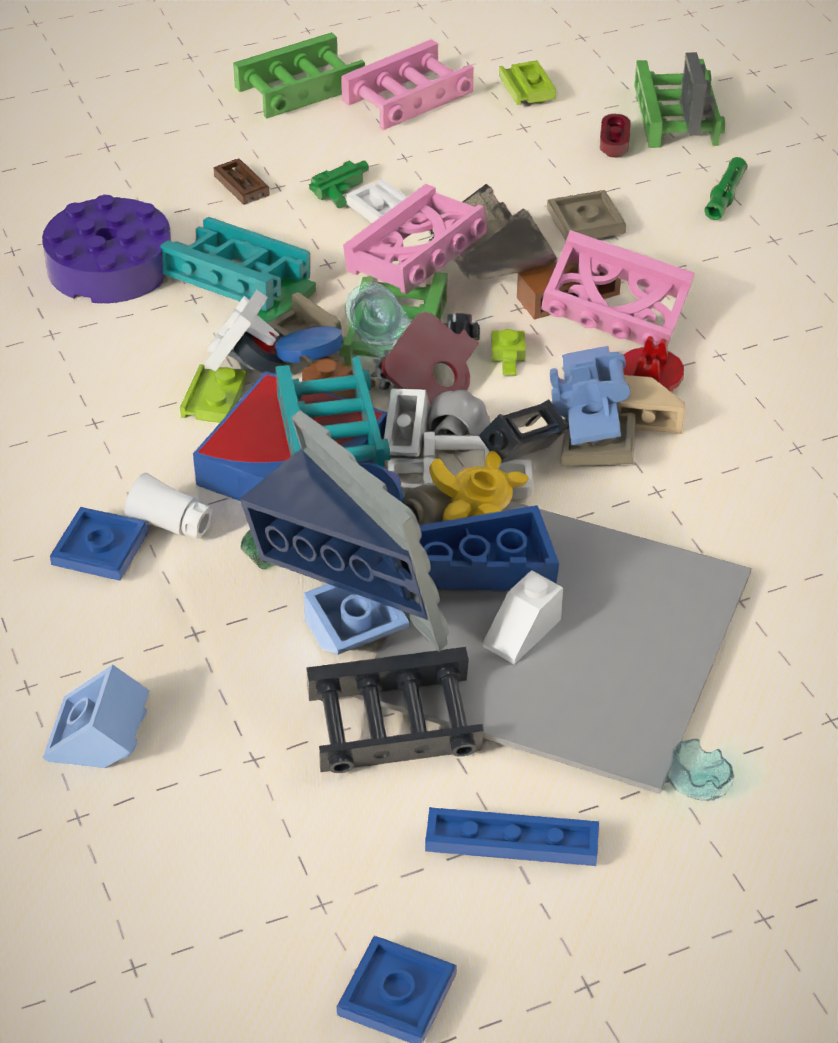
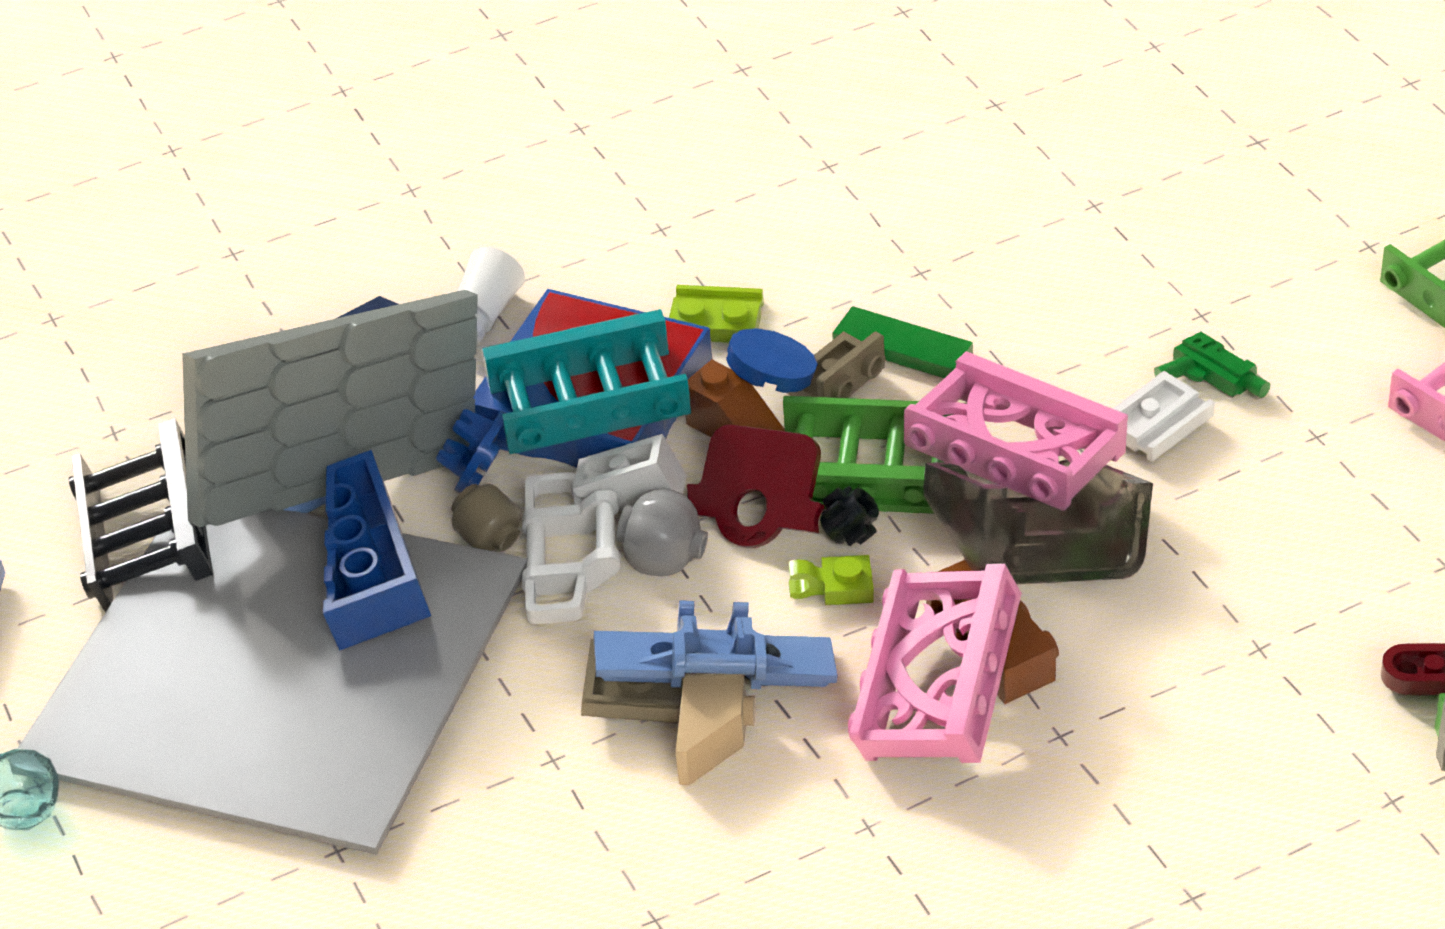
camera: 90 degrees right, 0 degrees up
(98, 721) = (154, 300): light blue slope -> none
(99, 543) = (430, 259): blue plate -> none
(106, 249) = (982, 170): dark purple brick -> none
(210, 264) = (956, 308): teal fence -> none
(236, 182) = (1200, 278): reddish brown tile -> none
(246, 338) = (791, 301): white plate -> none
(376, 317) = (837, 411): clear light blue piece -> none
(476, 488) = (488, 547): yellow animal -> none
(507, 440) = (567, 547): black window -> none
(525, 617) = (274, 613): white slope -> none
(586, 214) = (1181, 644): dark tan plate -> none
(655, 362) = (781, 729): red plate -> none
(723, 198) = (1309, 820): green pin -> none

